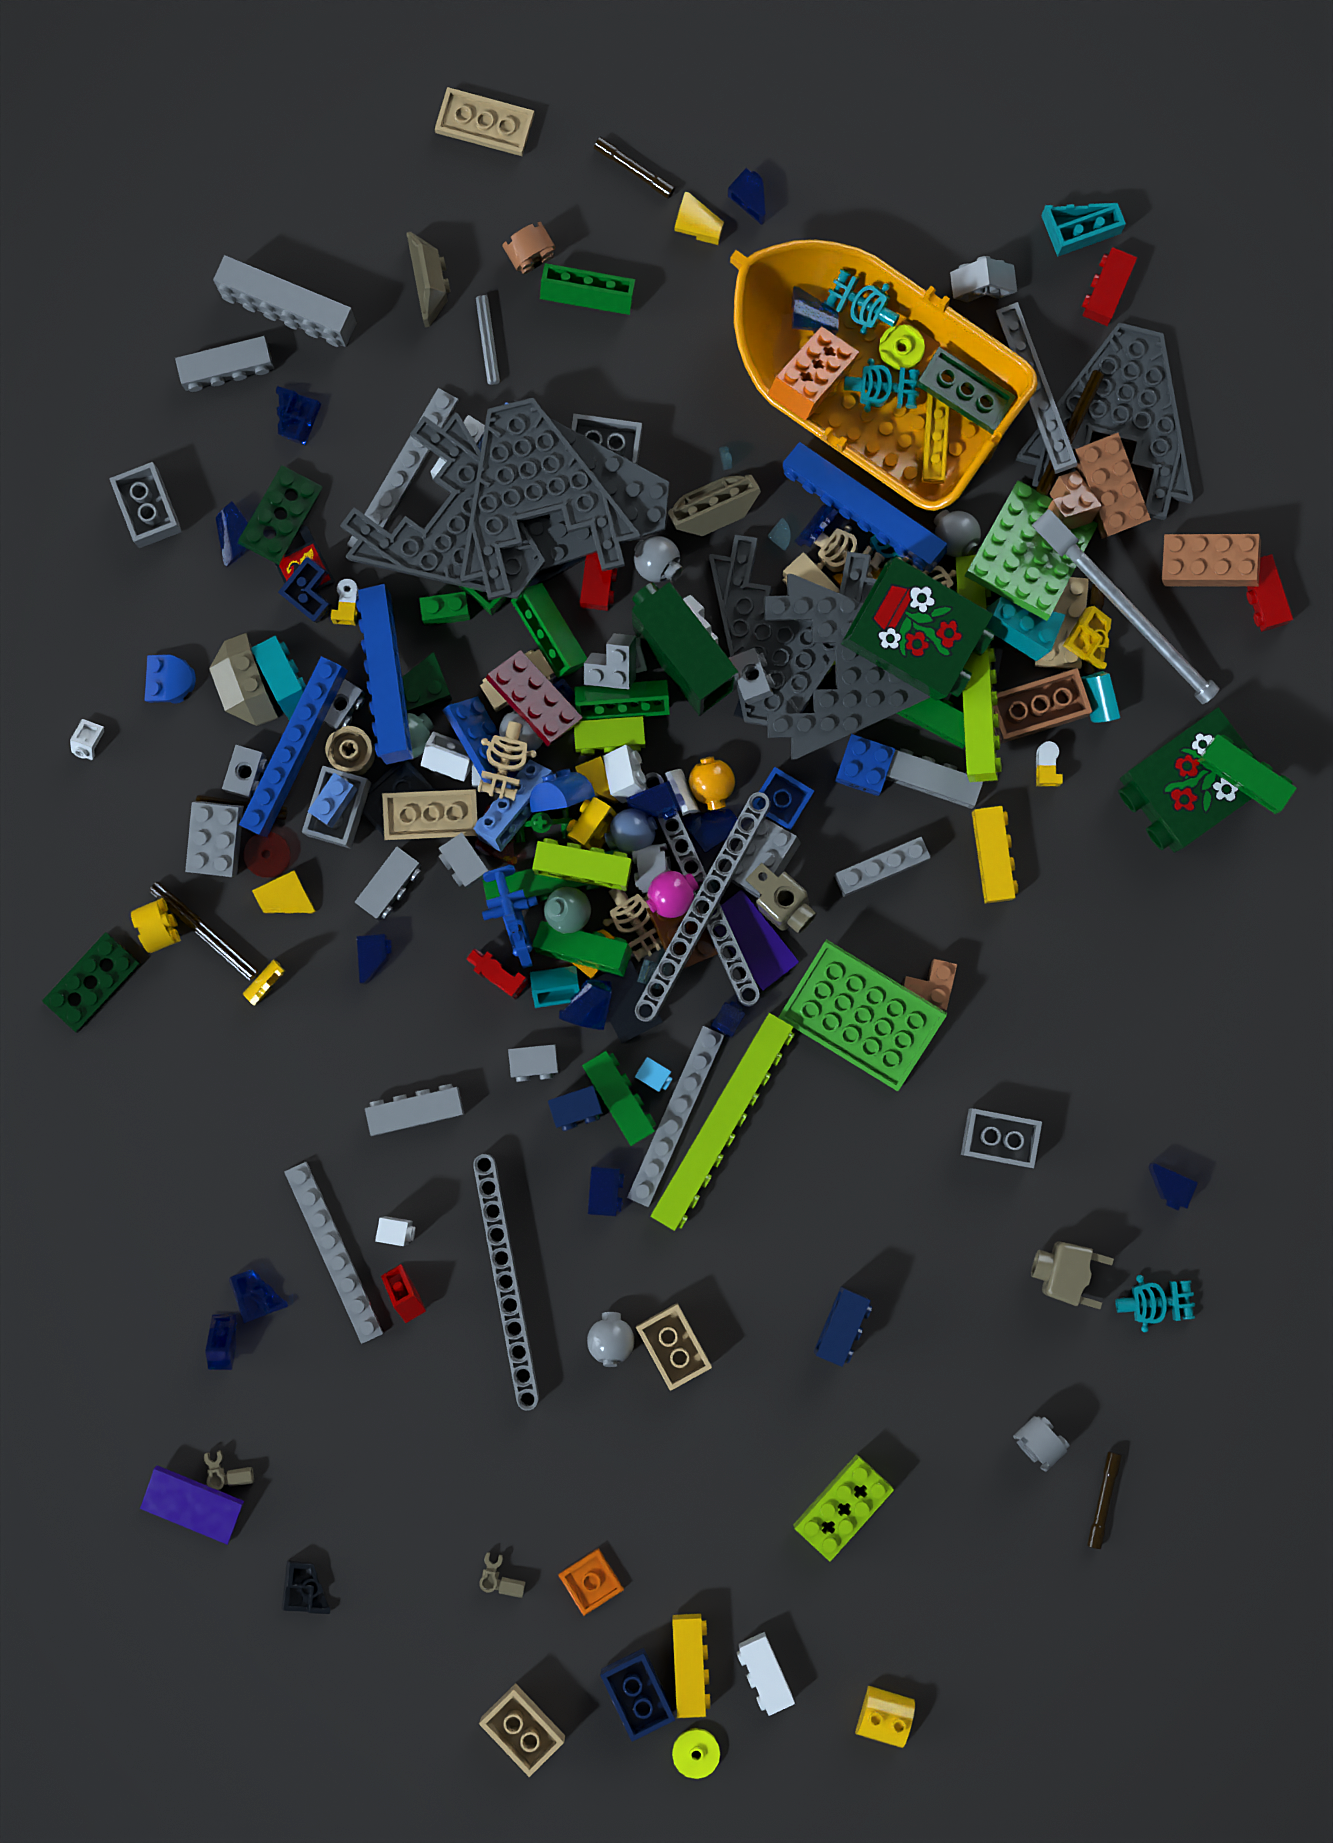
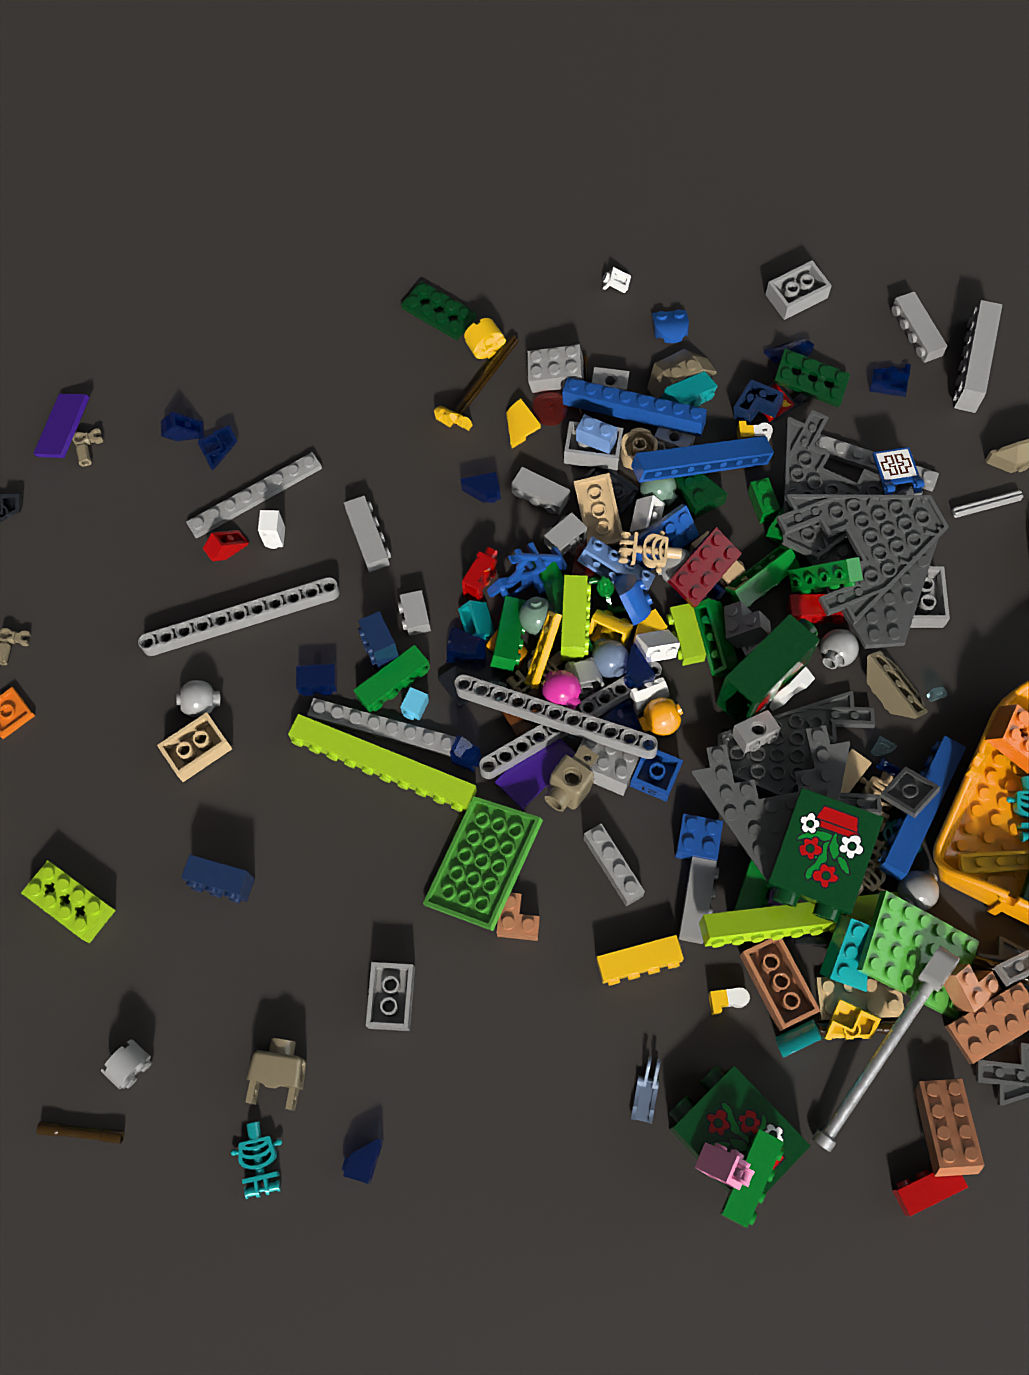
camera: 85 degrees right, 15 degrees down
(441, 440) = (896, 468): none -> flag
(571, 556) = (826, 575): none -> green brick
(616, 909) = (543, 649): none -> yellow tile
(851, 518) = (910, 792): none -> dark grey plate
(1135, 871) = (646, 1094): none -> sand blue arm
(1234, 799) = (724, 1166): none -> bright pink brick

